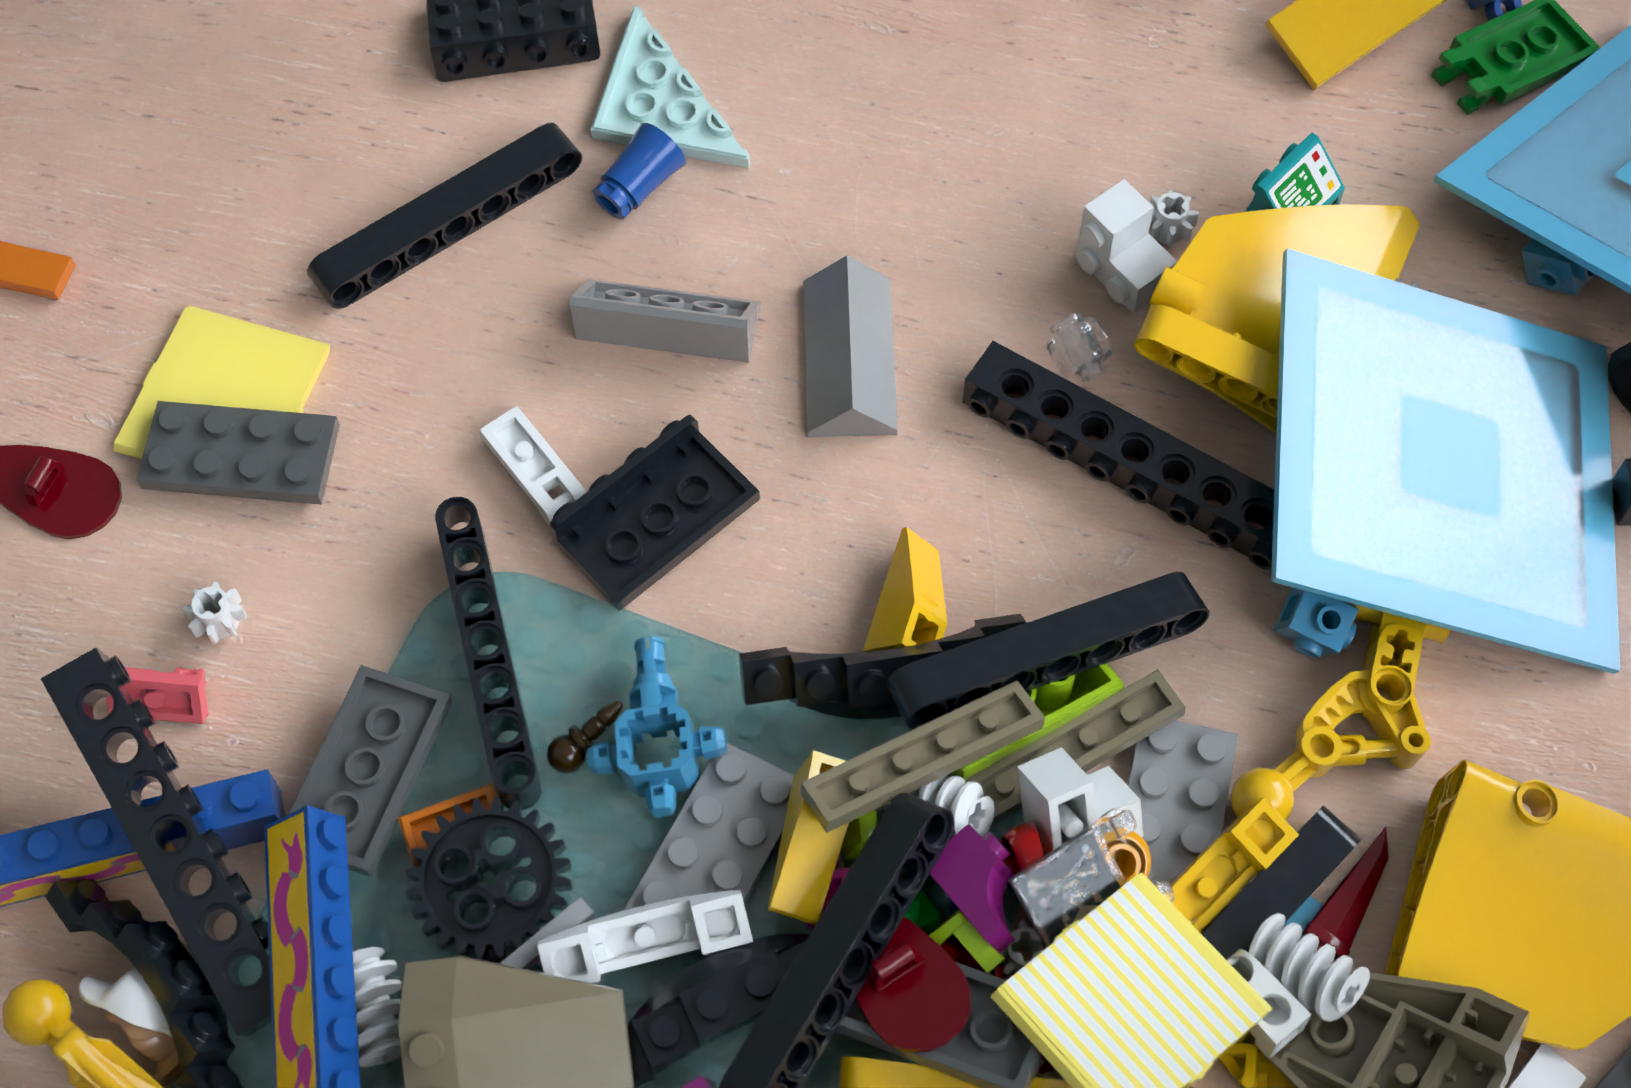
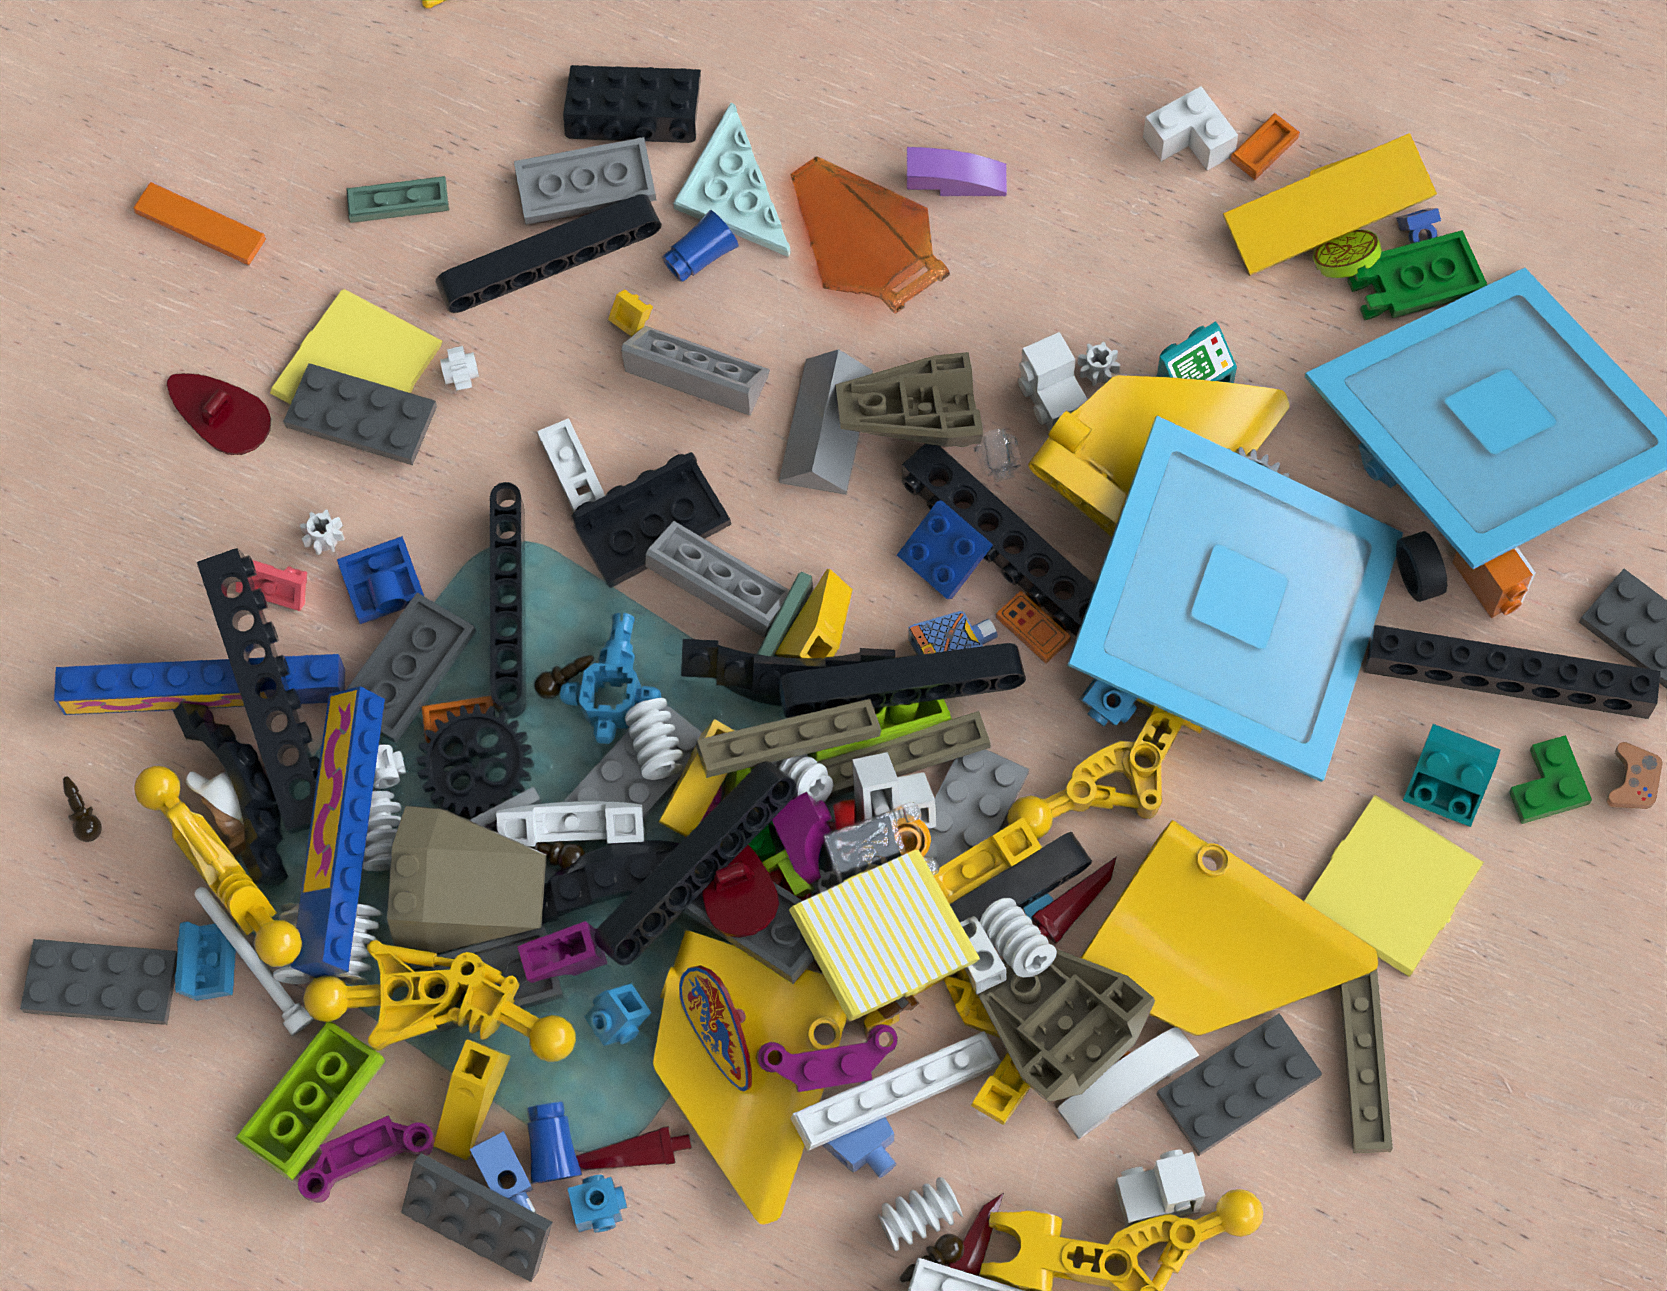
camera: 15 degrees right, 5 degrees up
(238, 187) = (397, 199): none -> sand green tile
(306, 660) = (380, 579): none -> blue plate
(360, 371) = (459, 368): none -> white gear
(368, 912) = (388, 767): none -> white gear
(469, 122) = (583, 180): none -> light grey plate
(565, 265) = (629, 312): none -> yellow tile
(638, 983) = (560, 853): none -> dark brown bar
(731, 796) = (652, 740): none -> white piece
(761, 570) = (716, 578): none -> light grey slope
(839, 124) = (865, 234): none -> clear orange windscreen
(865, 596) = (787, 614): none -> sand green tile
(927, 34) = (955, 173): none -> medium lavender slope
(965, 300) = (915, 402): none -> dark tan wedge
(1047, 475) = (944, 549): none -> blue plate
(1083, 579) = (949, 634): none -> torso
(1185, 550) = (1033, 627): none -> orange tile
(1429, 40) = (1347, 254): none -> lime tile

